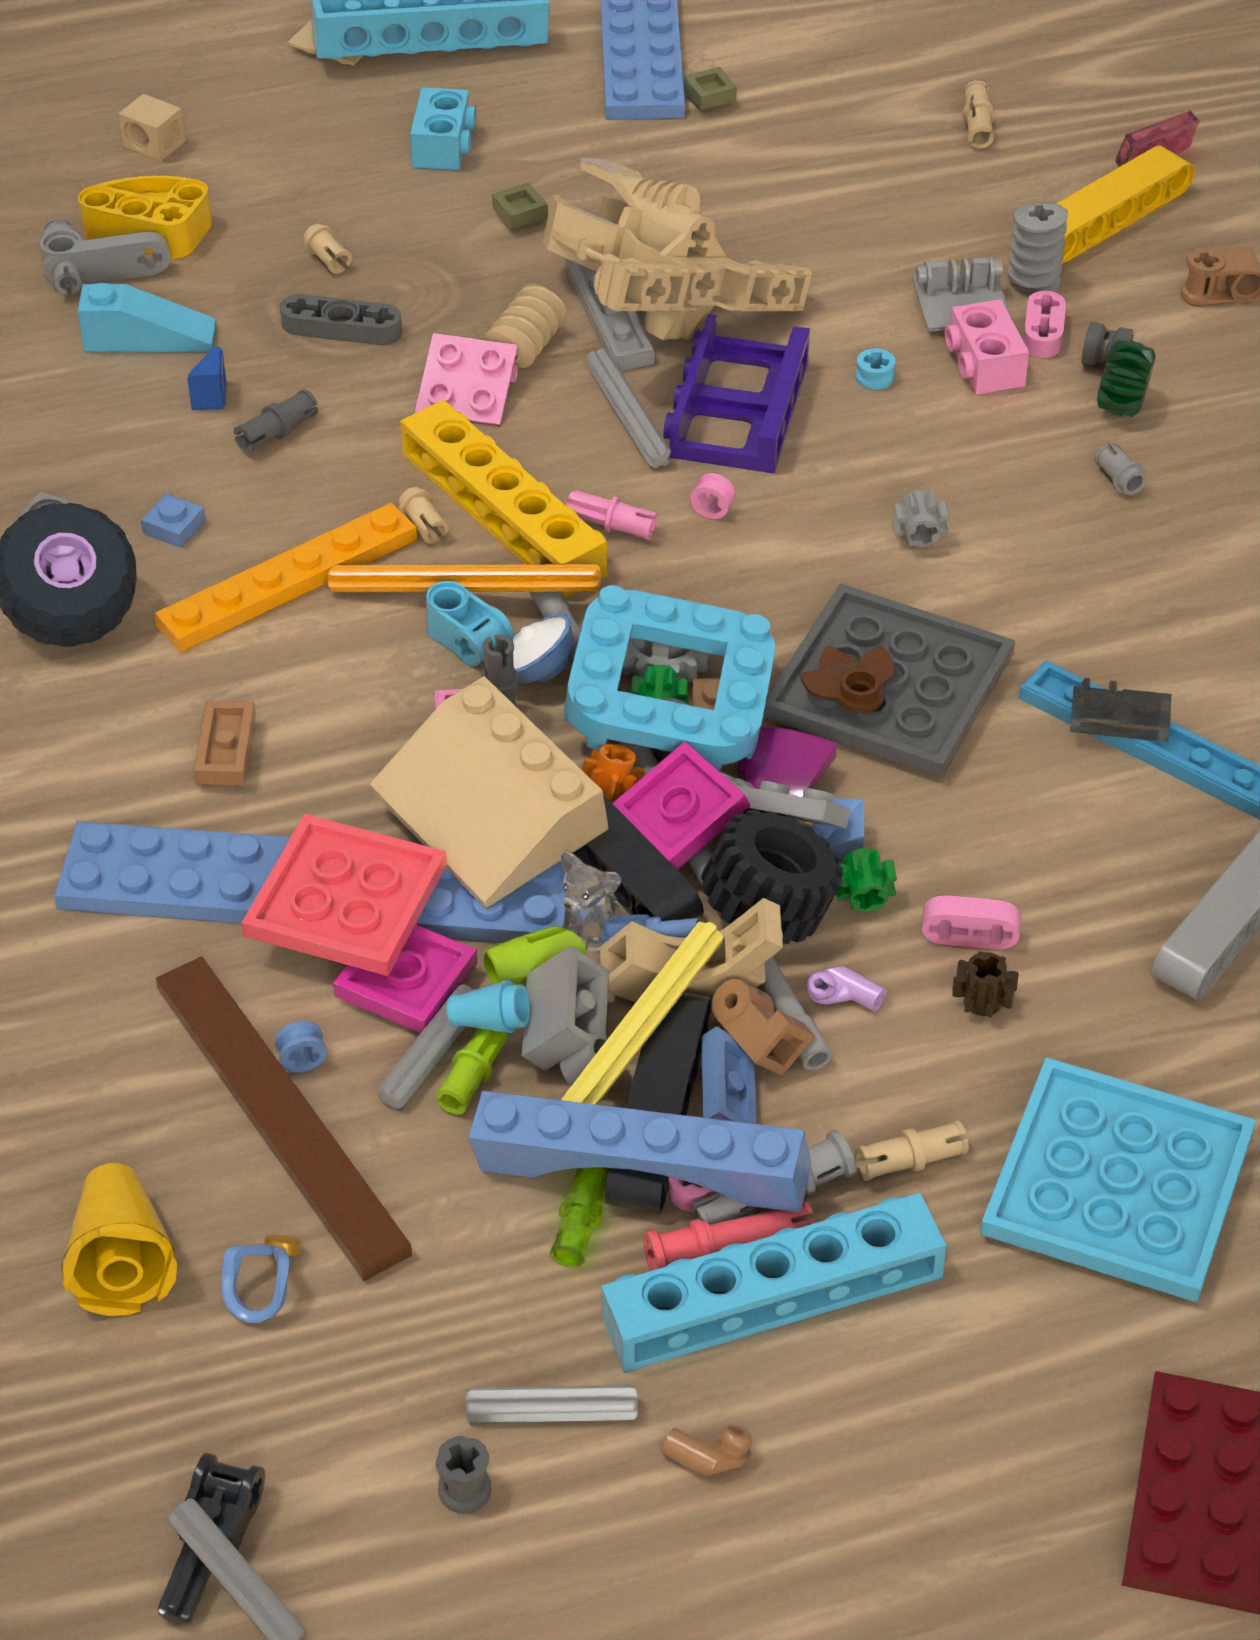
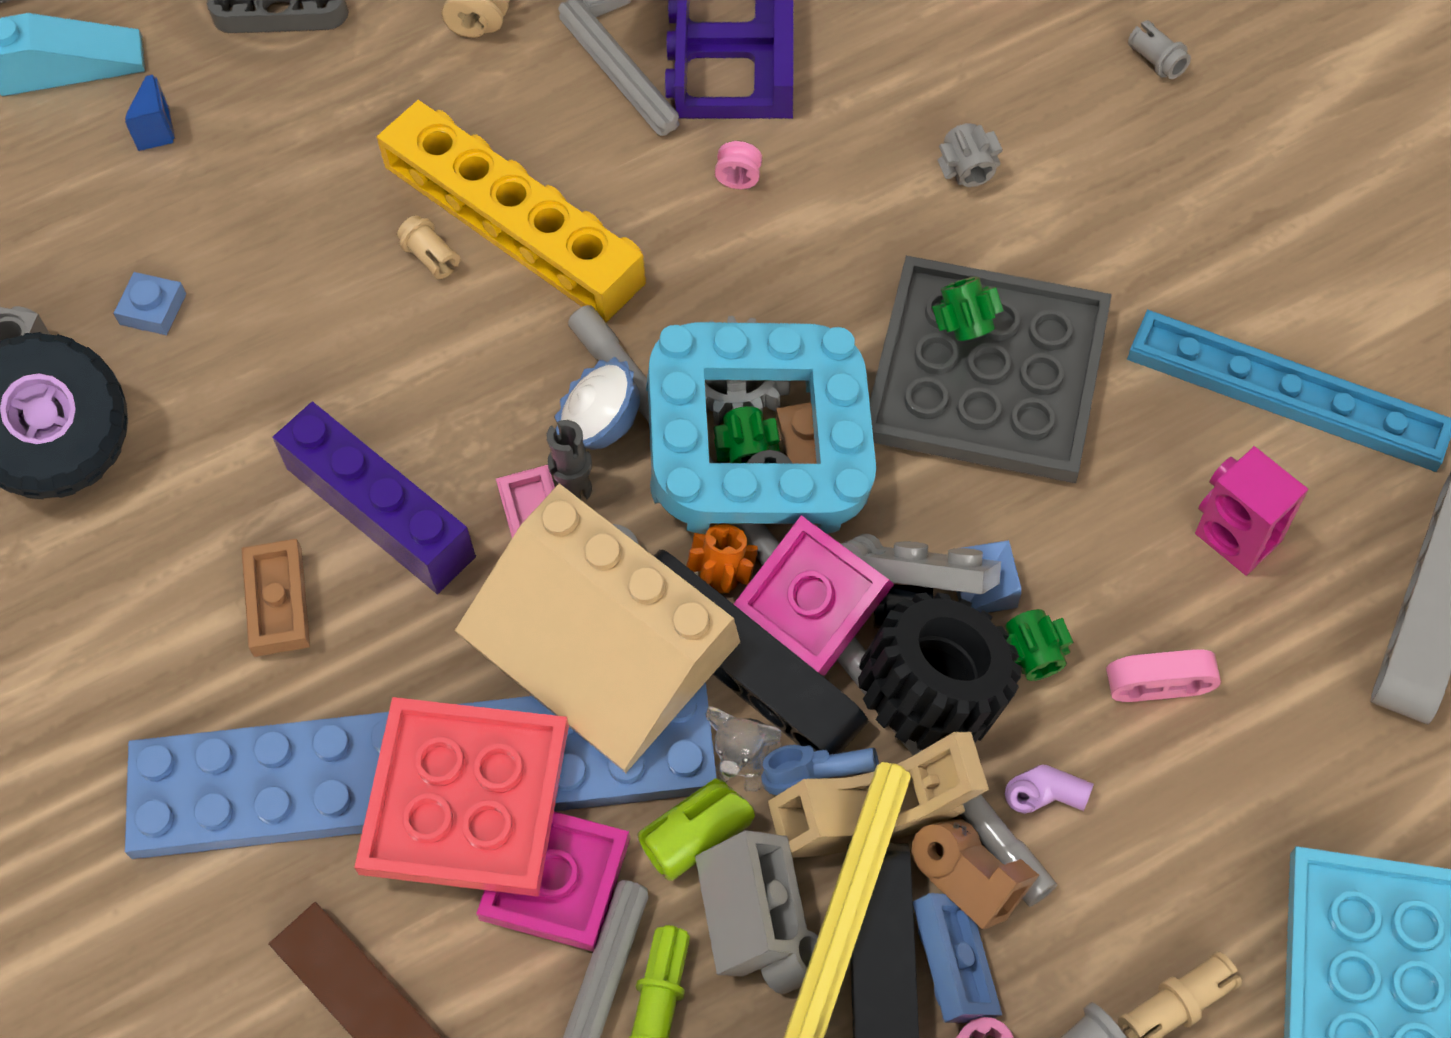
camera: 10 degrees left, 15 degrees up
(275, 421) = (236, 153): dark grey pin -> none
(283, 577) = (291, 356): light orange plate -> none
(301, 1046) = (458, 1007): medium blue bush -> none
(328, 684) = (375, 497): none -> dark purple brick
(462, 621) = (515, 391): medium azure piece -> none
(469, 376) = (435, 61): bright pink hinge -> none
(473, 577) = (495, 327): light orange axle -> none
(493, 1007) = (671, 922): medium azure cone -> none
(613, 514) = (634, 208): bright pink axle -> none
(788, 759) = (909, 502): magenta brick -> none
(851, 682) = (947, 379): reddish brown plate -> none
(877, 622) = (967, 308): none -> green gear
(985, 984) = (1209, 742): dark brown gear -> none
(1081, 809) = (1249, 509): none -> dark pink brick
(1120, 713) = (1249, 367): clear smoke plate -> none

